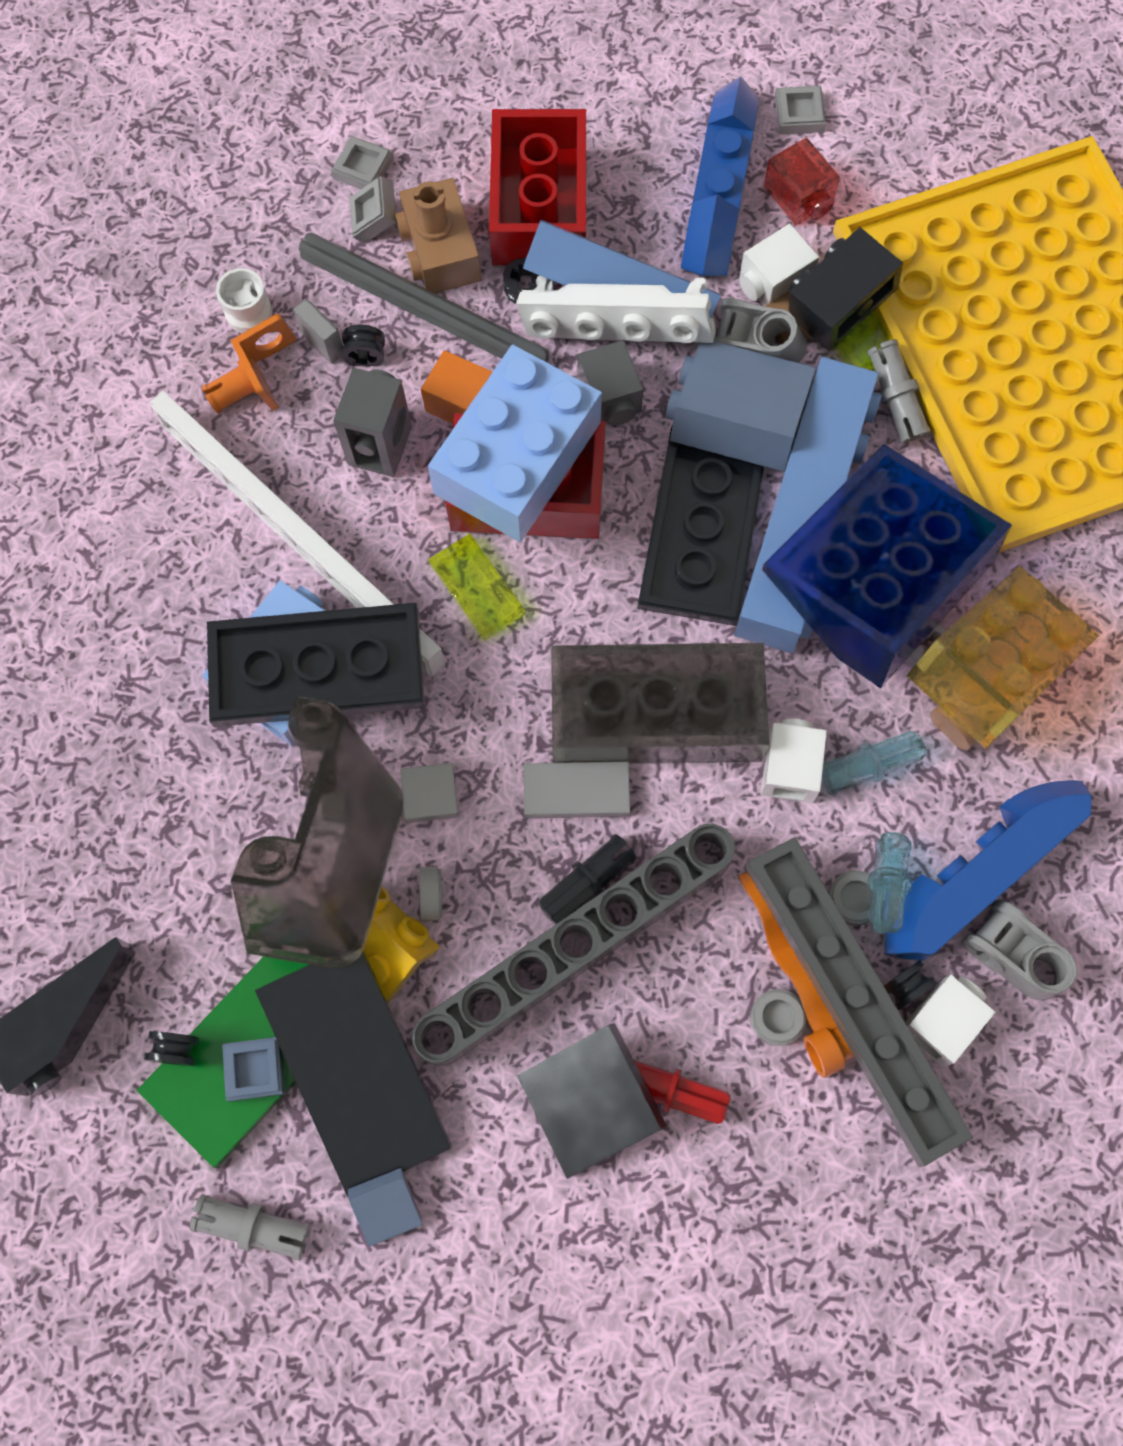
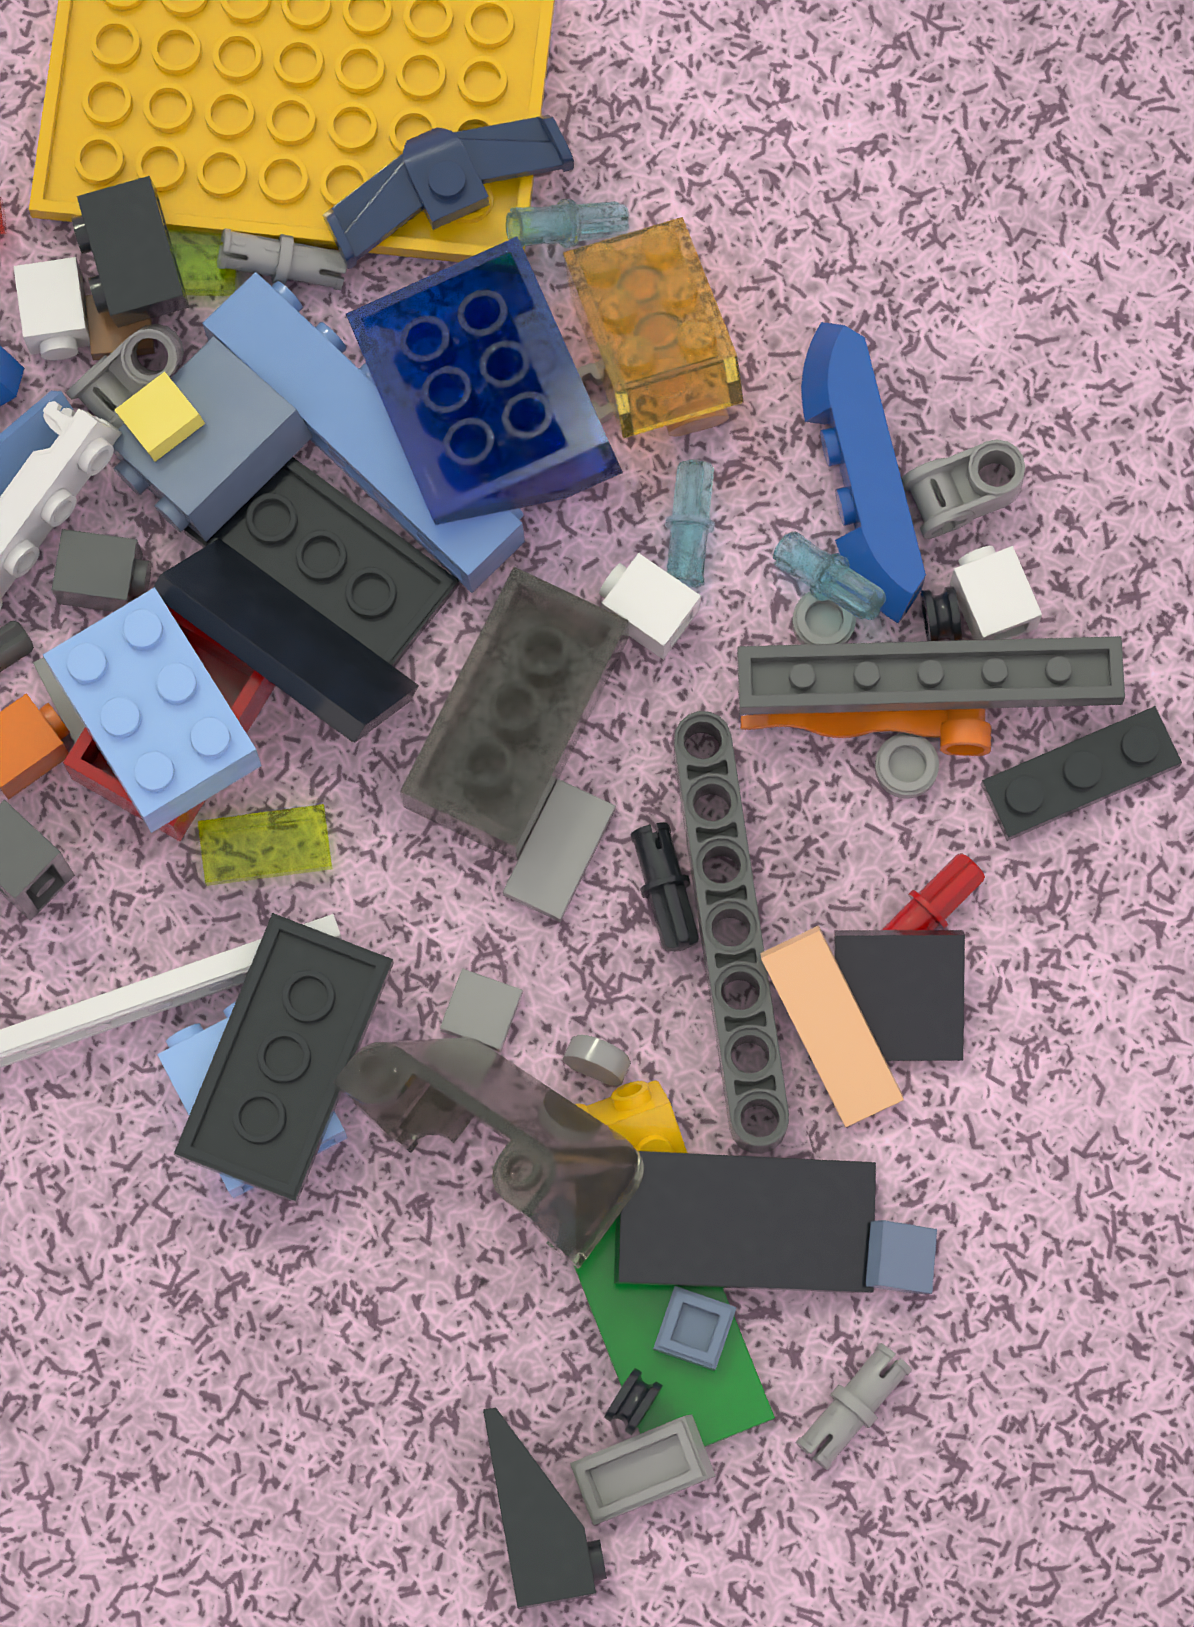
camera: 65 degrees left, 5 degrees up
(128, 1084) = (642, 1469): none -> light grey tile
(538, 1059) = (831, 1026): none -> light nougat tile
(622, 517) = (285, 640): none -> black tile
(736, 356) = (159, 416): none -> light yellow tile
(847, 1162) = (1081, 773): none -> black plate
(1020, 462) = (444, 178): none -> dark blue plate
(1042, 560) = (567, 223): none -> clear light blue axle

